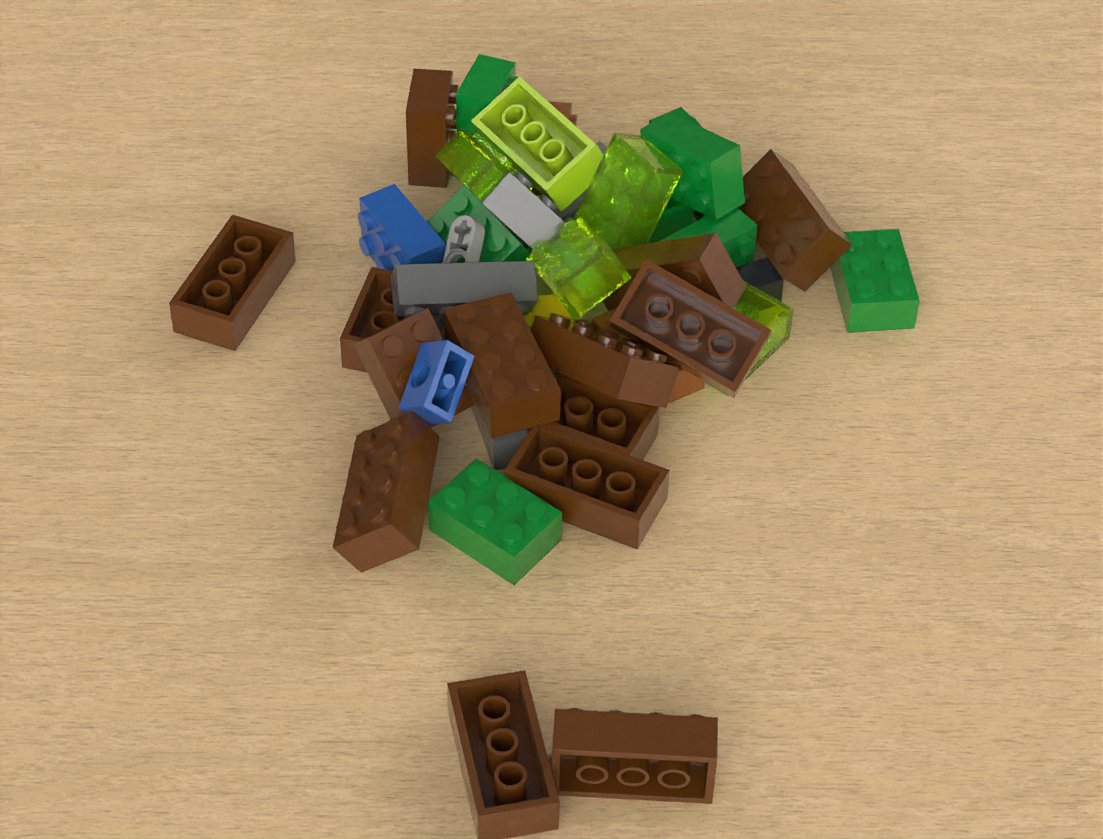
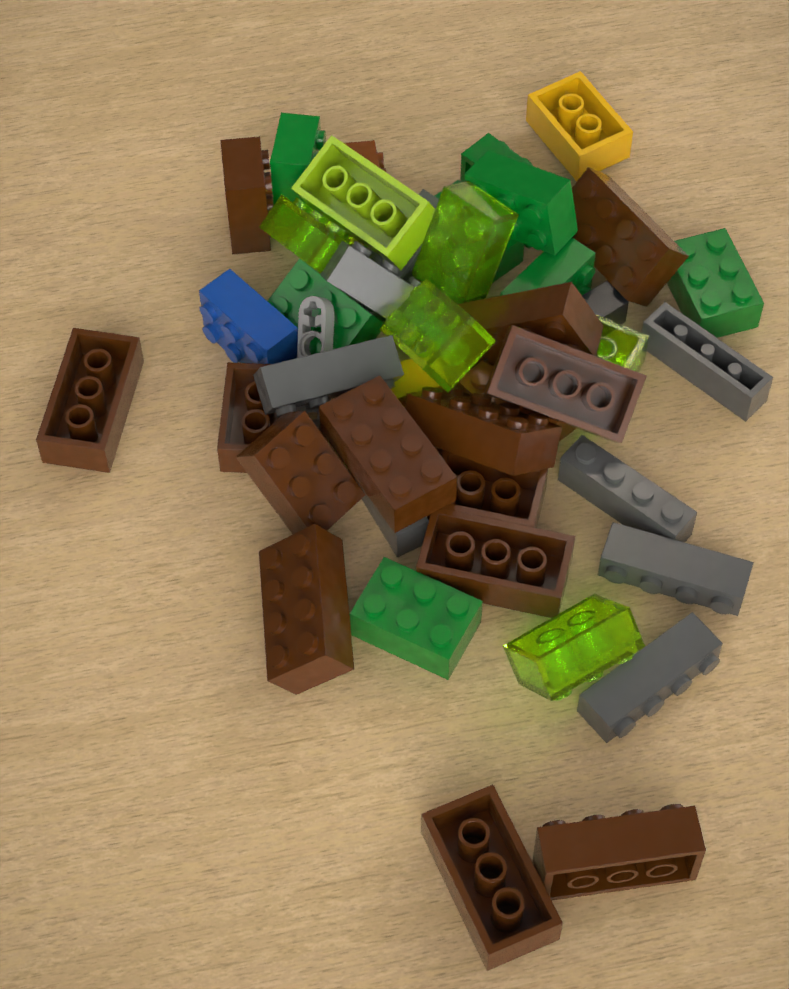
camera: 10 degrees left, 10 degrees up
(436, 381) = (331, 489): blue brick -> none
(642, 569) = (574, 647): none -> clear neon green brick
(713, 613) = (650, 678): none -> dark grey brick
(735, 450) = (624, 492): none -> dark grey brick
(766, 522) = (675, 569): none -> dark grey brick
(779, 117) = (578, 125): none -> yellow brick
(848, 345) = (706, 361): none -> dark grey brick

